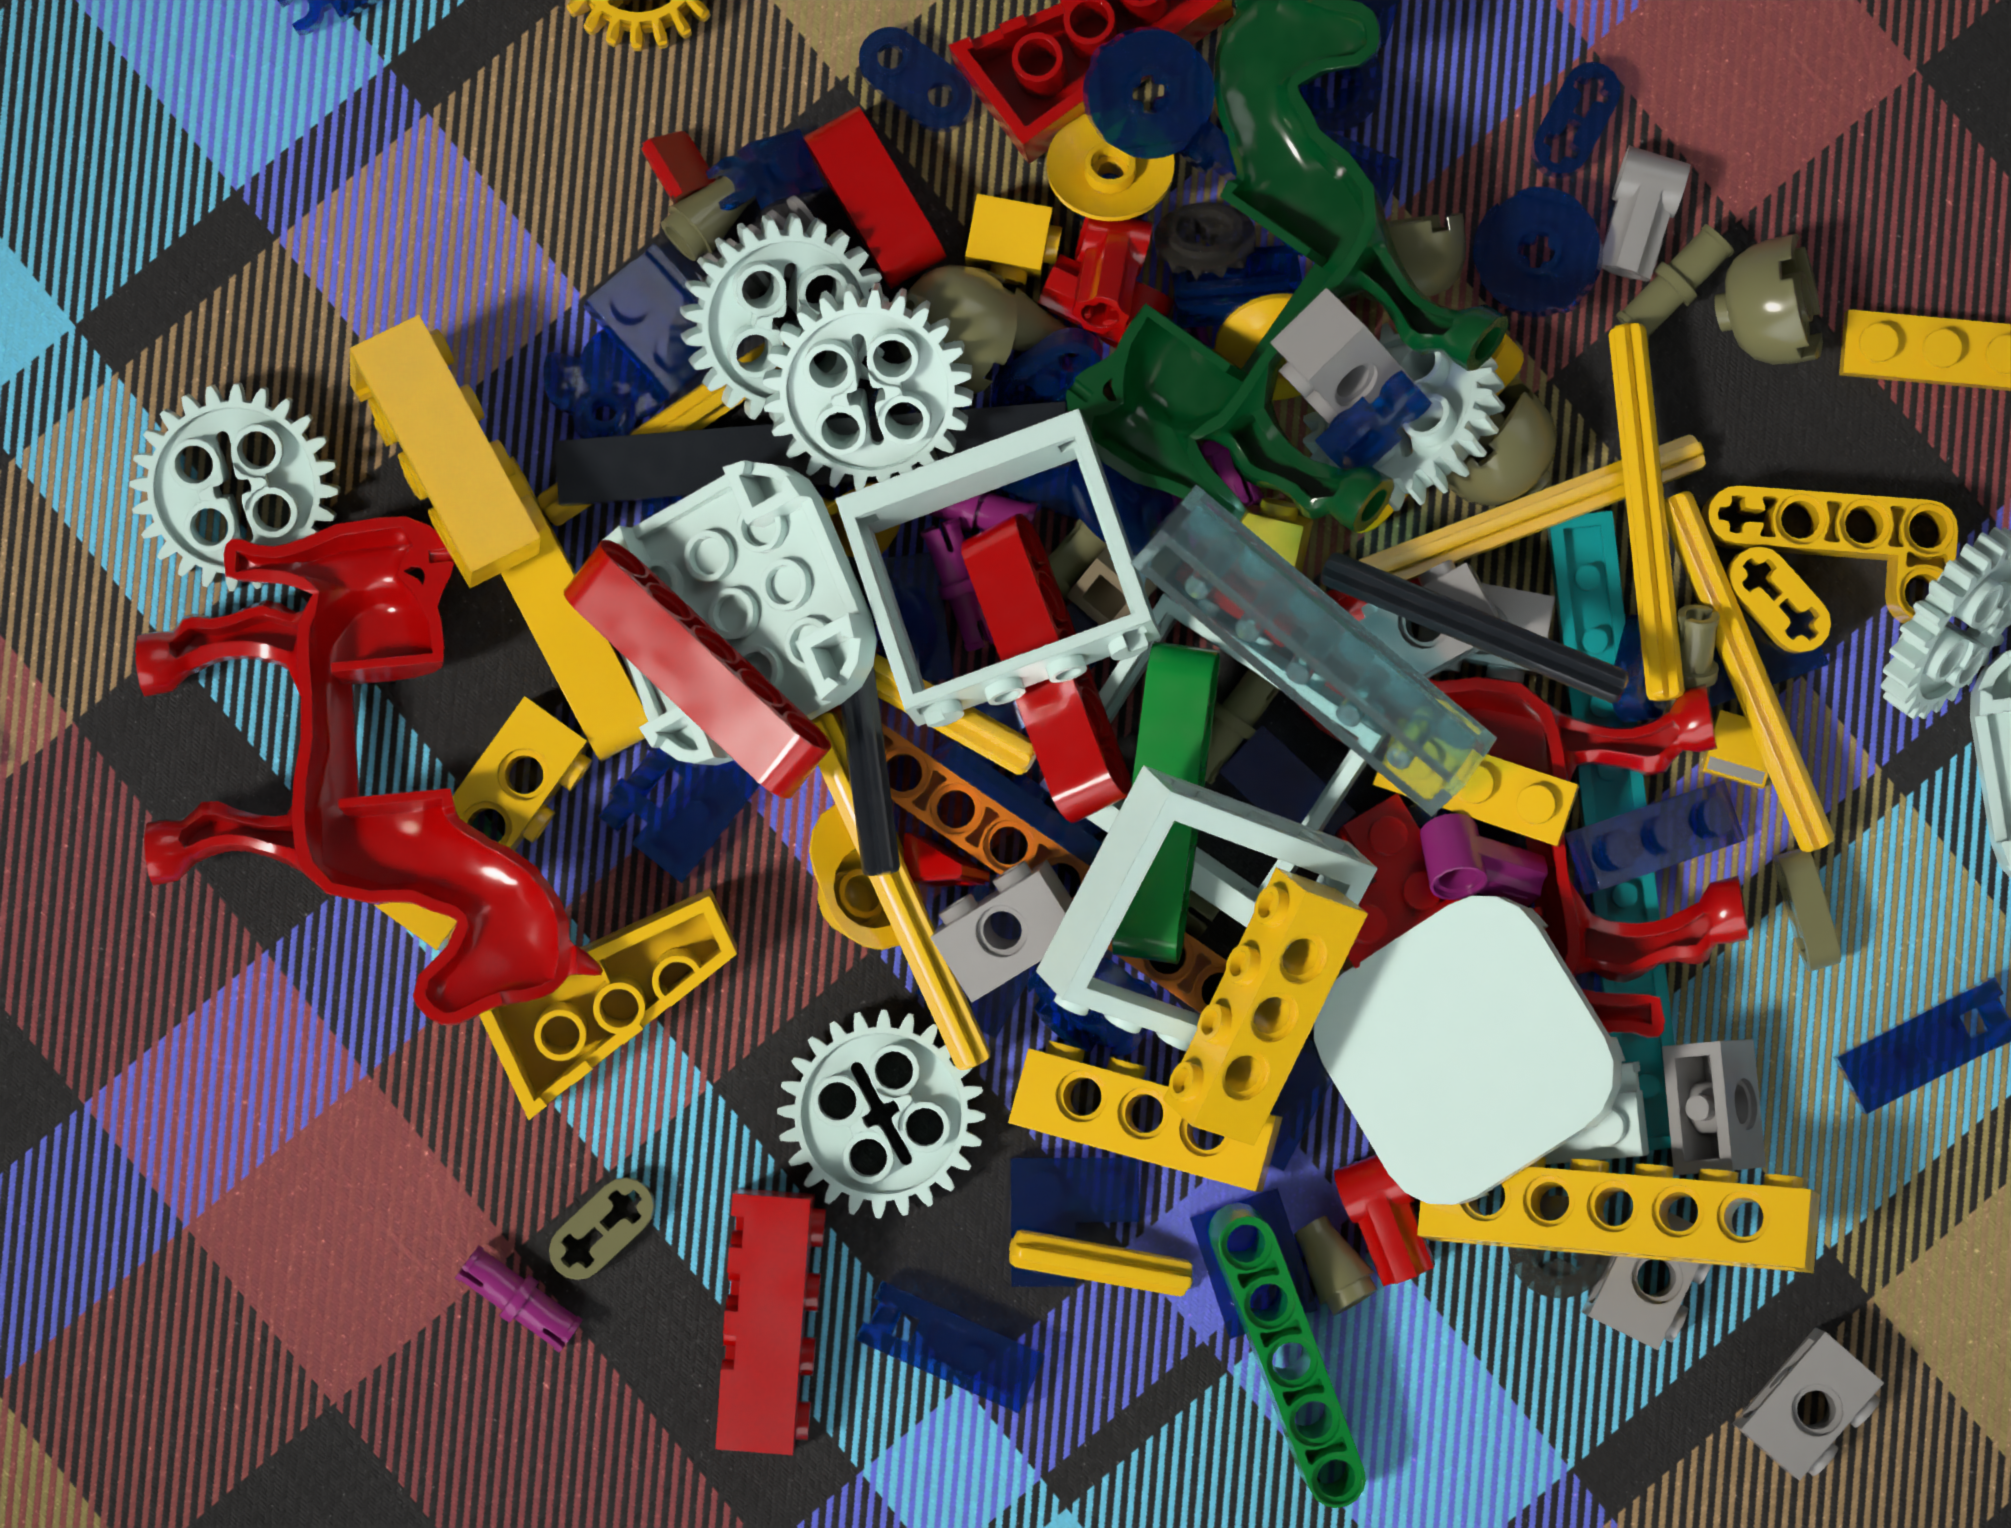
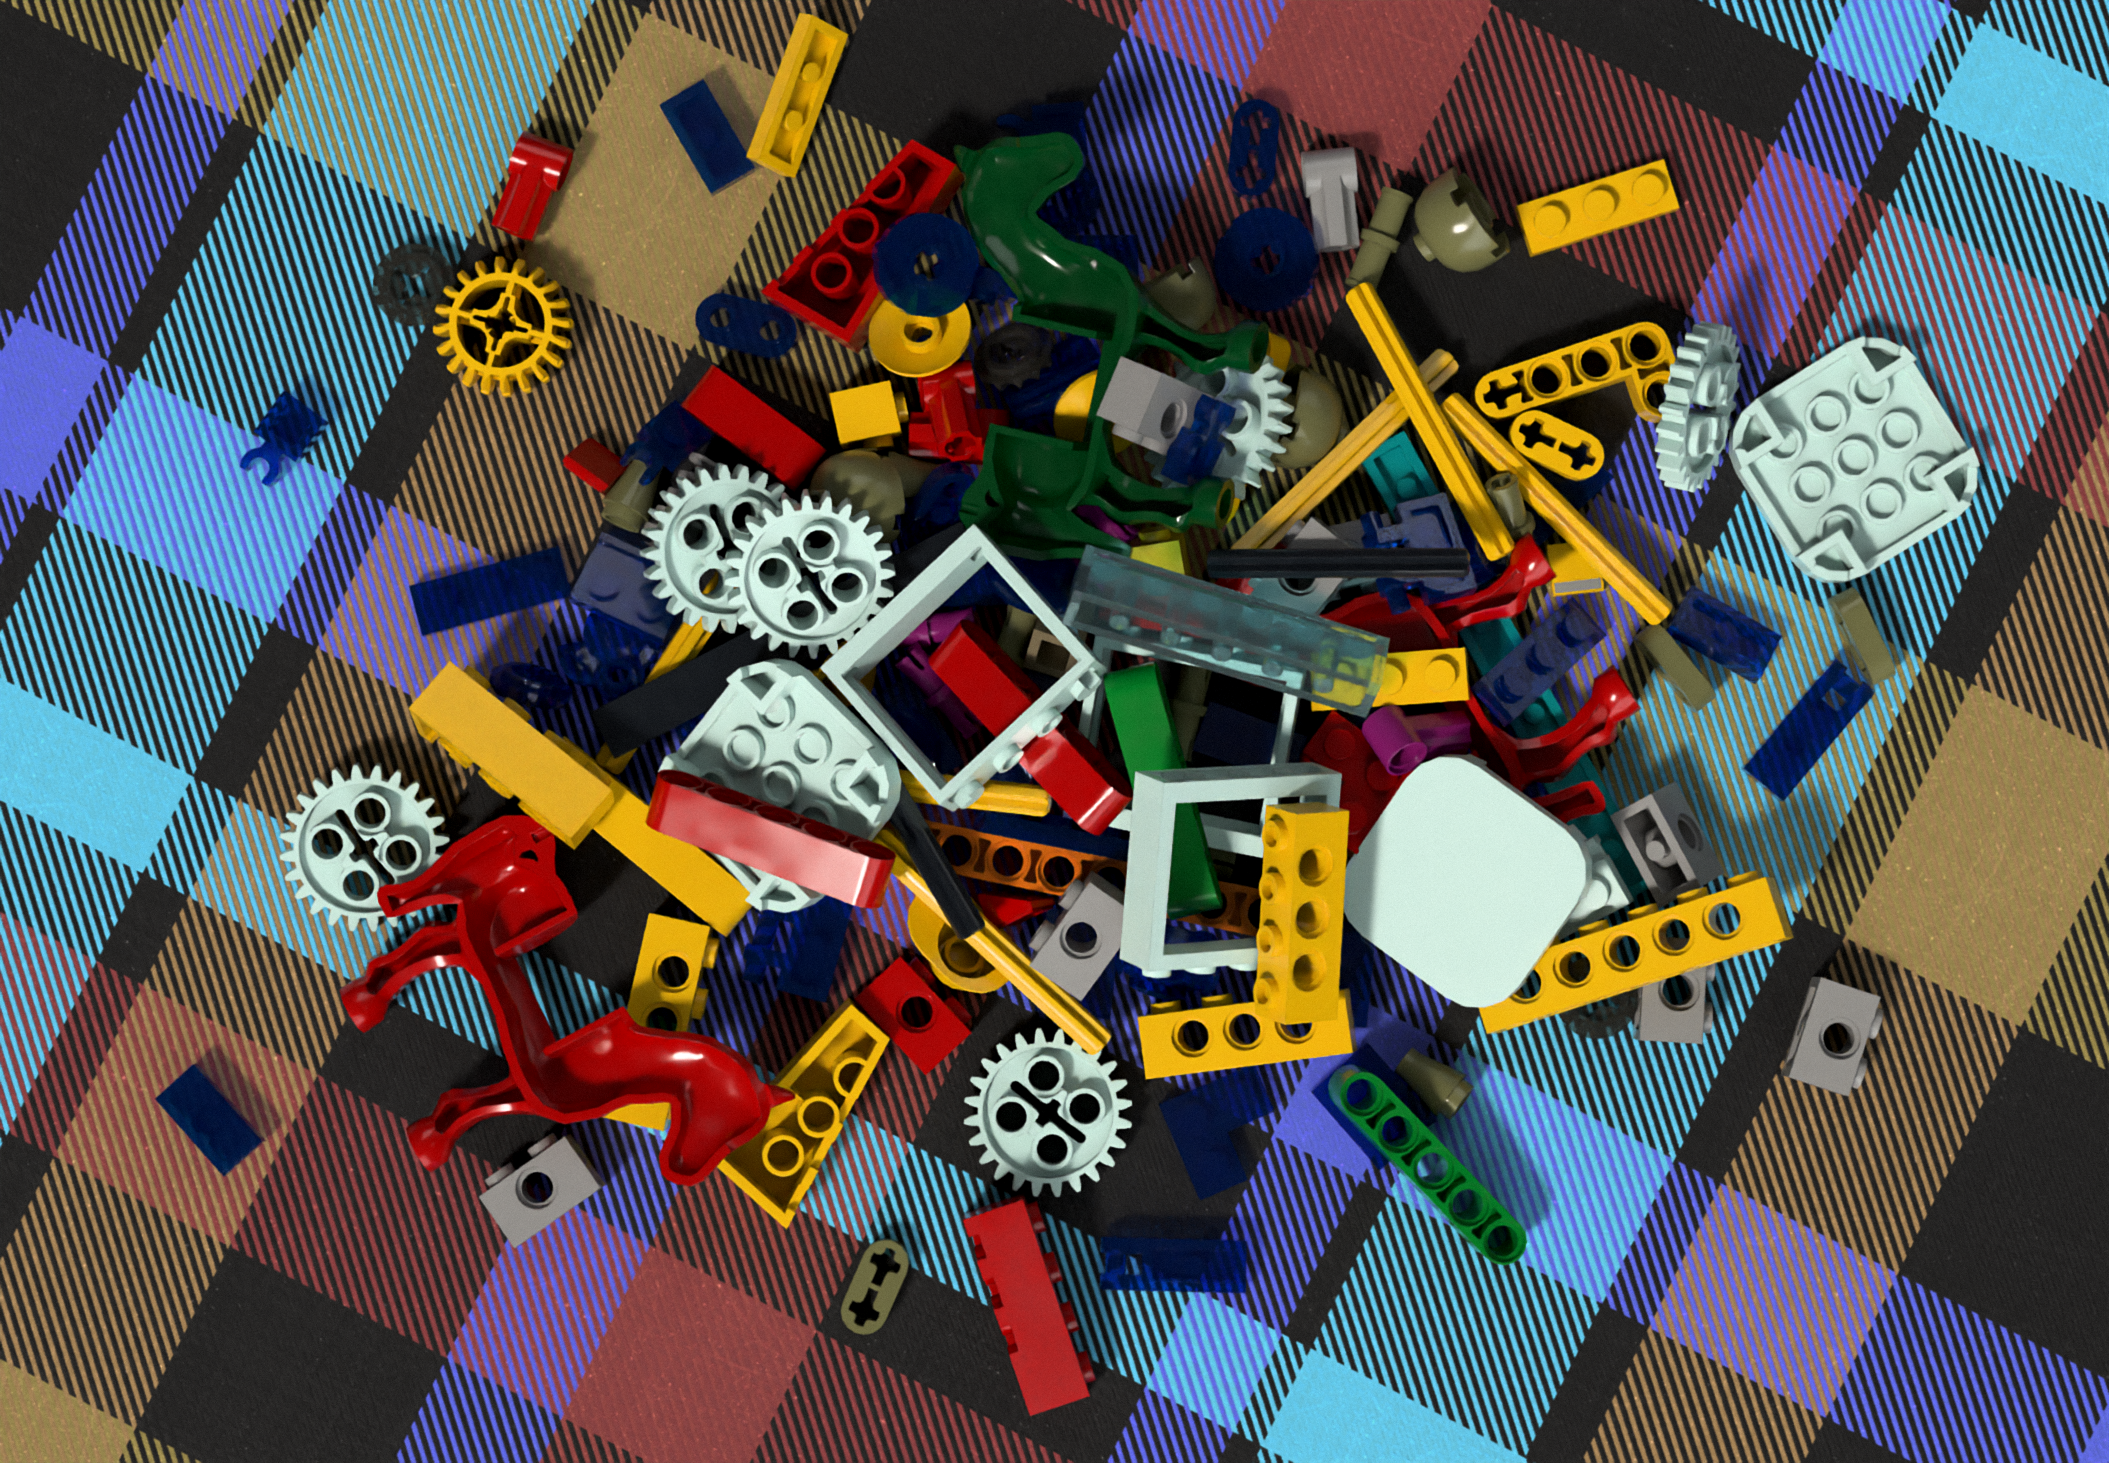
camera: 20 degrees left, 0 degrees up
(309, 965) = (521, 1214): none -> light grey brick
(499, 382) = (530, 685): none -> clear blue gear
(500, 258) = (491, 591): none -> clear blue plate
(518, 1298) = (835, 1365): magenta pin -> none
(749, 911) = (885, 1004): none -> red brick
(1100, 1263) = (1259, 1154): yellow axle -> none
(1385, 1220) = (1457, 1032): red piece -> none
(1585, 623) = (1420, 524): none -> clear blue plate
(1878, 895) = (1723, 634): none -> clear blue plate

